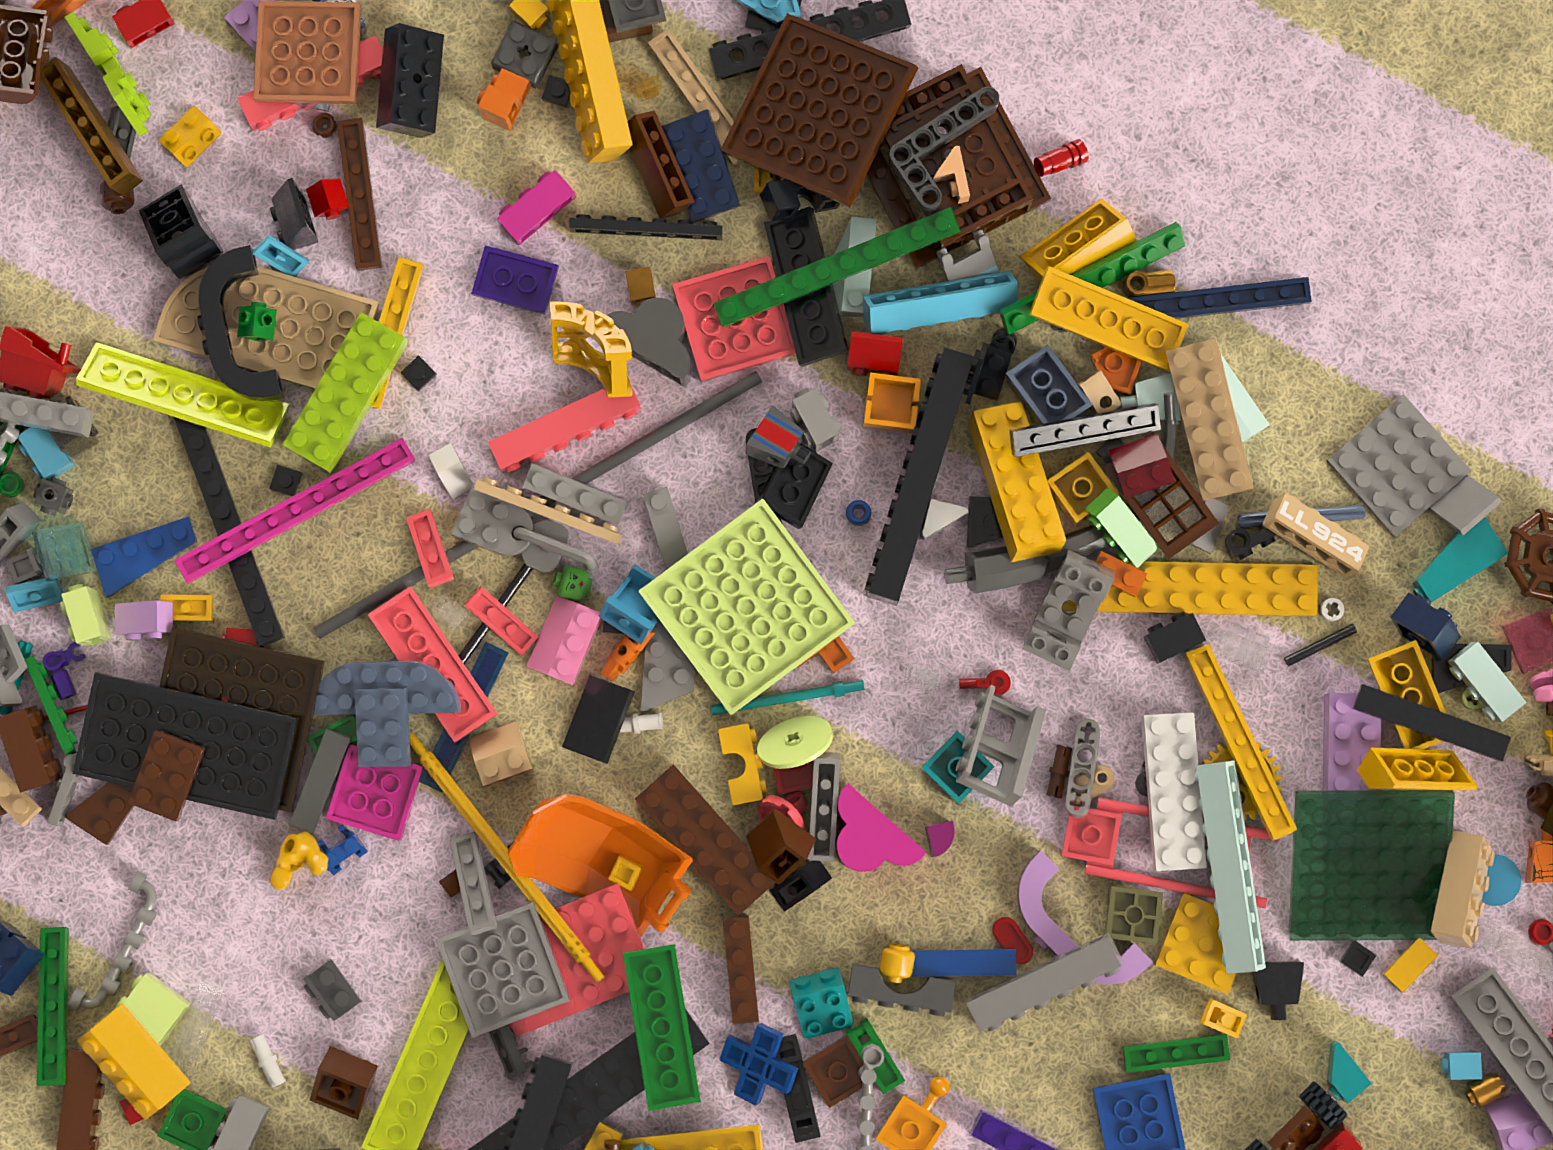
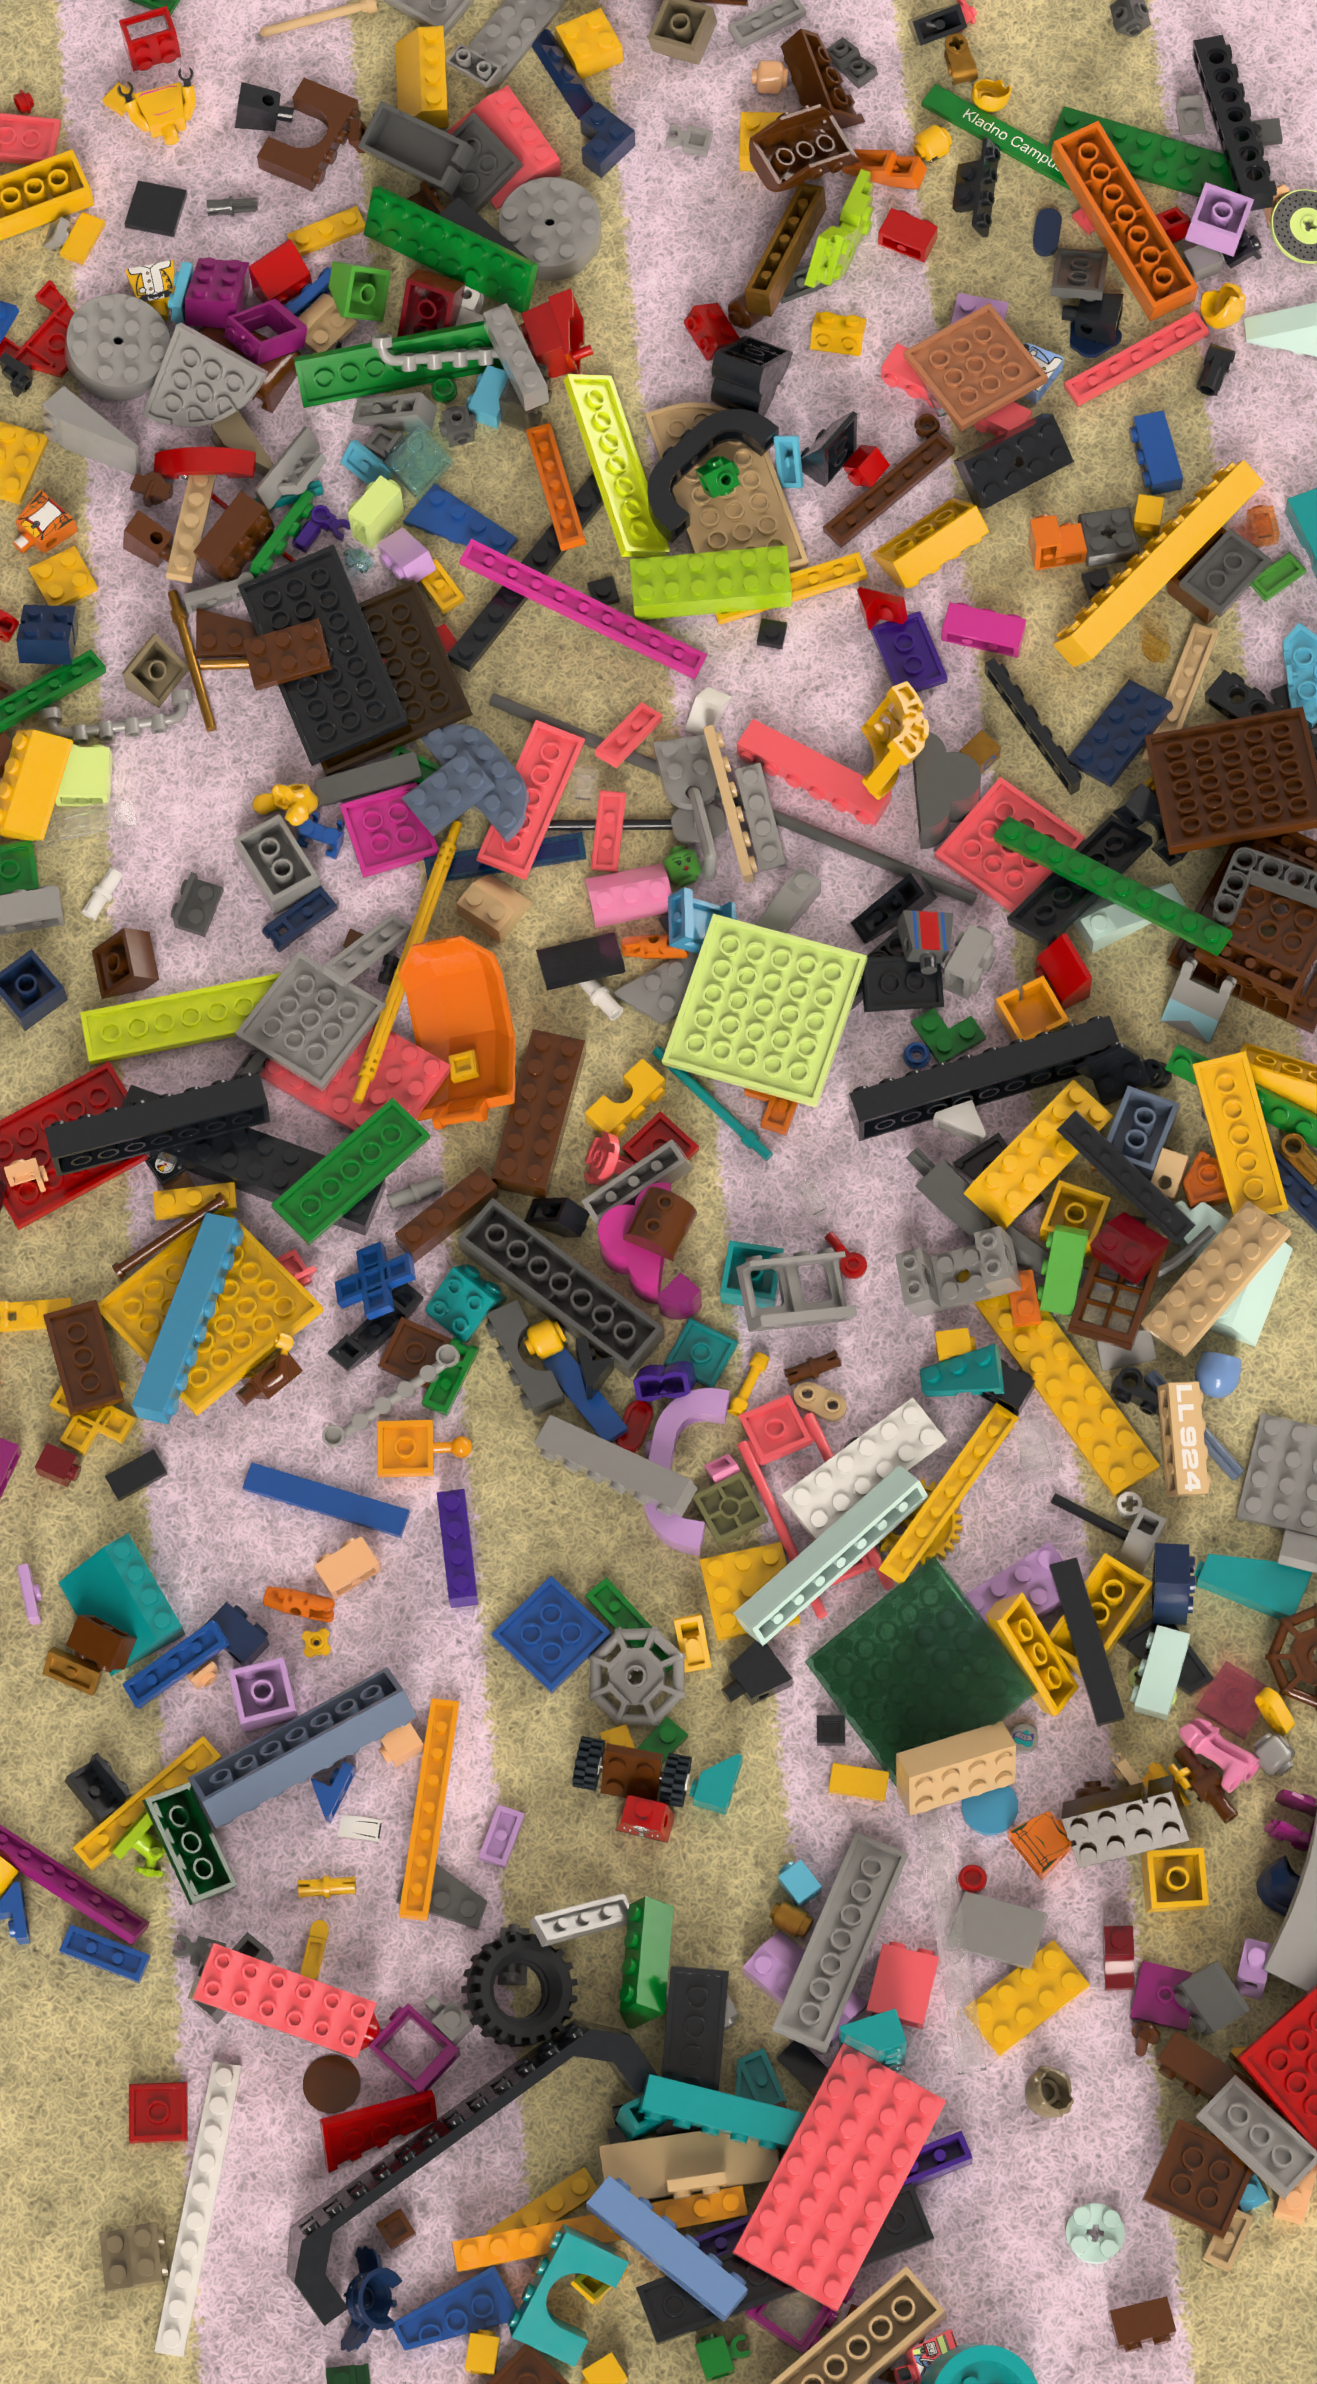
camera: 60 degrees right, 15 degrees down
(61, 835) = (180, 617): none -> pearl gold bar
(99, 889) = (154, 671): none -> dark tan slope
(113, 234) = (710, 328): none -> red bracket
(114, 656) = (358, 560): none -> clear light blue plant
(129, 827) = (216, 664): none -> pearl gold bar
(168, 456) = (555, 487): none -> orange plate
(344, 904) = (276, 864): none -> light grey brick
(402, 915) = (300, 918): none -> dark blue plate
(429, 194) = (931, 542): none -> yellow slope
(458, 275) = (880, 605): none -> red slope
(658, 165) = (1093, 696): reddish brown brick -> none
(702, 981) = (414, 1192): none -> light grey pin
(702, 1119) = (296, 1267): none -> coral bracket
(724, 444) = (909, 894): none -> black slope
(779, 845) = (576, 1167): reddish brown slope -> none
(795, 742) = (676, 1124): yellowish green piece -> none
(862, 483) = (944, 1042): none -> green plate
(865, 922) = (560, 1287): none -> dark grey brick
(879, 816) = (661, 1222): none -> reddish brown brick
(939, 302) = (1147, 992): medium azure brick -> none
(954, 169) = (1264, 913): light nougat slope -> none
(955, 948) = (593, 1371): none -> black slope
(988, 848) = (705, 1349): none -> teal tile
(998, 895) = (669, 1381): none -> dark purple brick
(1051, 848) = (758, 1364): none -> yellow bar
(1084, 768) = (831, 1384): light grey beam -> none
(1095, 898) = (721, 1468): none -> bright pink plate
(1118, 652) = (953, 1343): none -> yellow brick
(1151, 662) = (970, 1372): none -> teal wing
(1209, 1068) = (620, 1676): none -> light grey plate
(1257, 1126) = (618, 1736): none -> yellow plate
(1280, 1096) = (664, 1739): none -> green plate
(1281, 472) = (1217, 1374): none -> medium blue helmet
(1370, 623) = (1141, 1540): none -> light grey slope
(1462, 817) = (1025, 1738): none -> light grey tile

